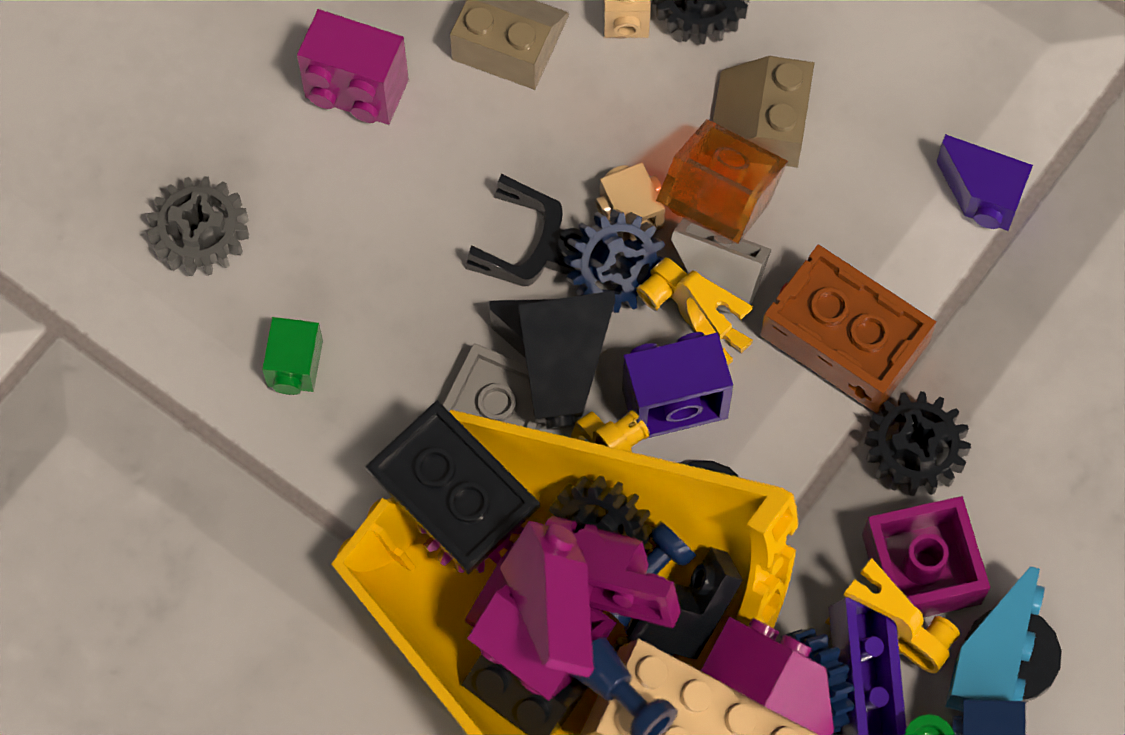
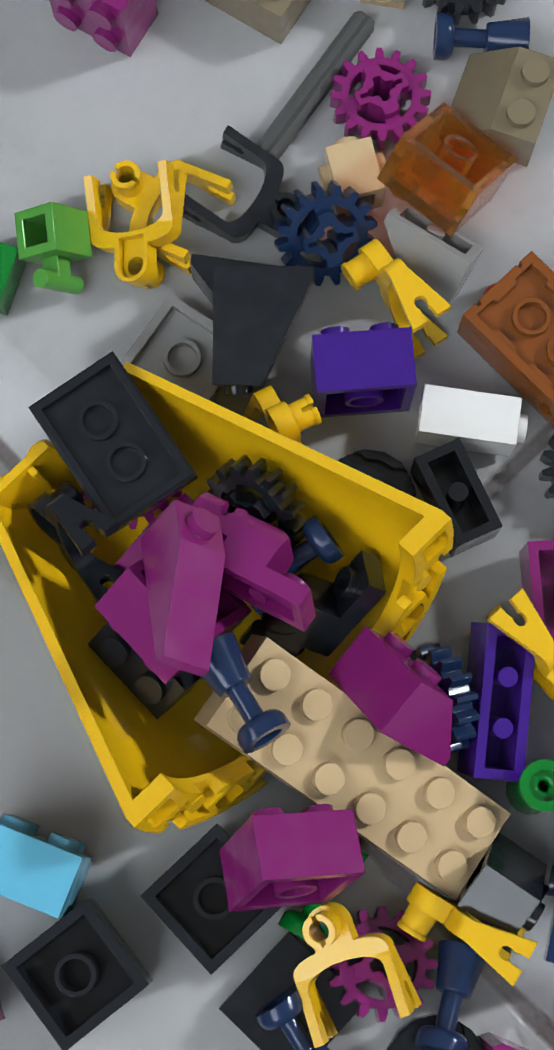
camera: 10 degrees right, 10 degrees up
(350, 309) = (55, 238): none -> bright green brick
(415, 568) = (62, 518): none -> black piece
(432, 251) = (144, 200): none -> yellow piece
(434, 306) = (137, 250): none -> yellow piece
(578, 121) = (316, 84): none -> dark grey axle
(643, 125) = (383, 91): none -> magenta gear
(743, 50) = (494, 37): none -> dark blue piece
(782, 465) = (451, 484): none -> black brick
(790, 415) = (479, 419): none -> white brick

